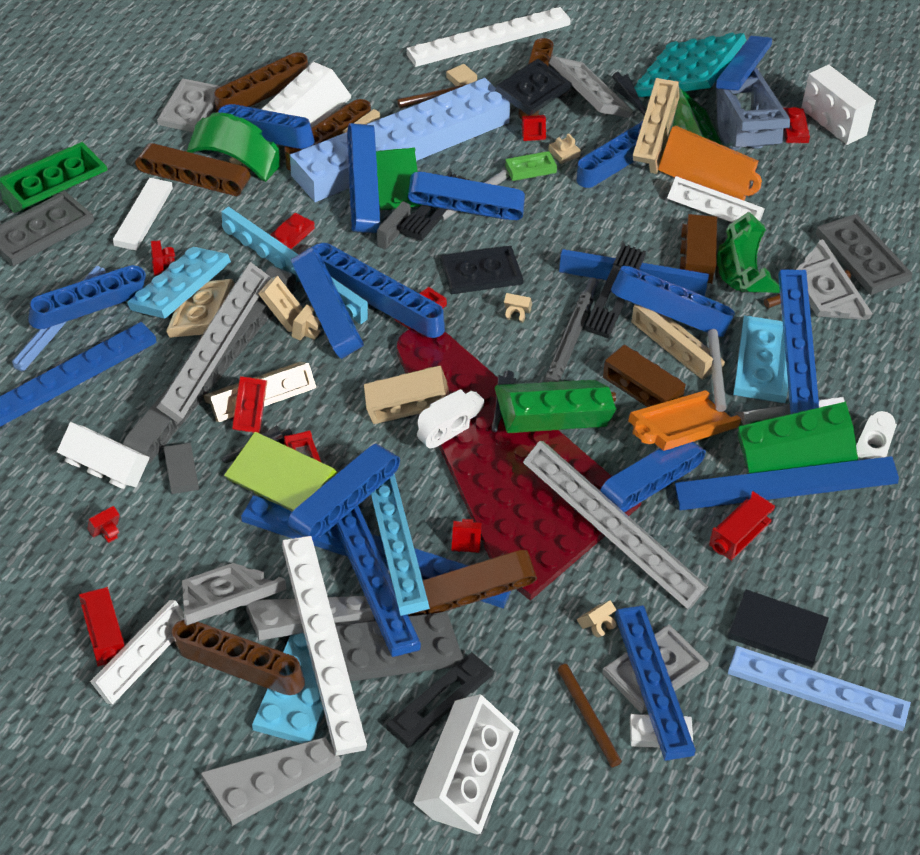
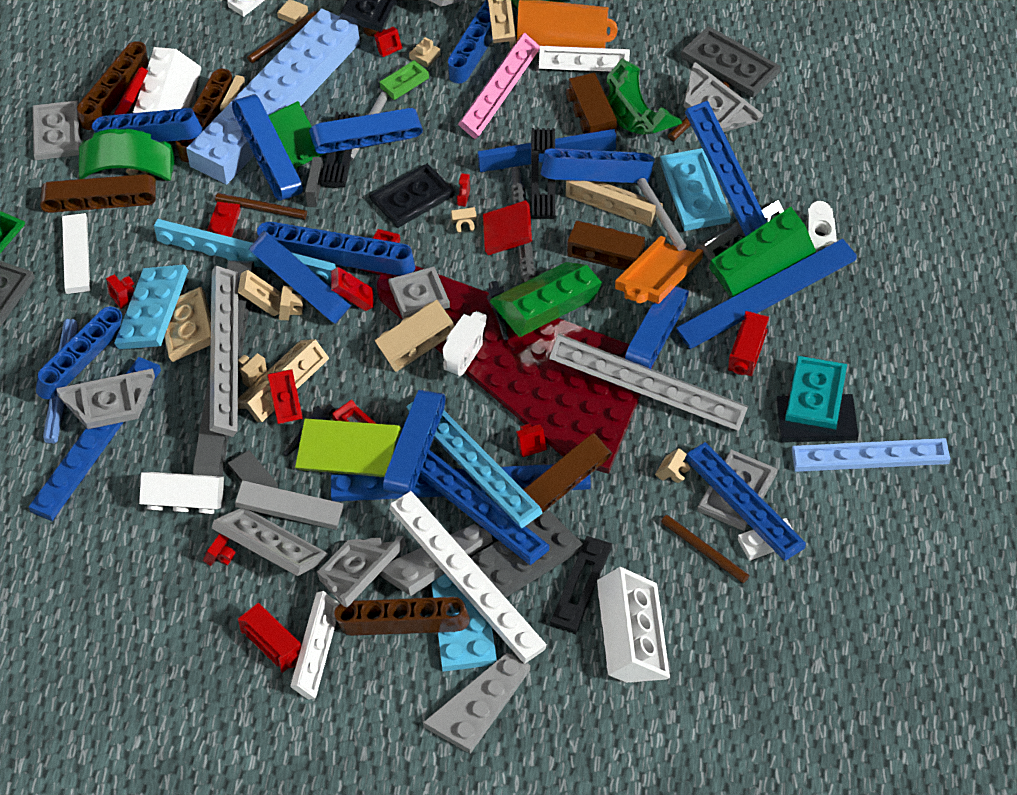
camera: 20 degrees left, 5 degrees up
(88, 347) = (108, 399): none -> light grey wing
(155, 534) = (270, 541): none -> light grey tile
(197, 508) = (289, 505): none -> light grey tile
(236, 368) = (252, 369): none -> tan tile
(268, 92) = (131, 92): none -> red tile
(335, 231) = (262, 206): none -> reddish brown bar
(370, 330) = (352, 288): none -> red plate
(433, 351) = (416, 290): none -> light grey tile
(534, 280) = (464, 182): none -> red tile
(554, 329) = (507, 227): none -> red tile
(618, 200) = (499, 86): none -> bright pink plate
(789, 601) = (816, 392): none -> teal tile

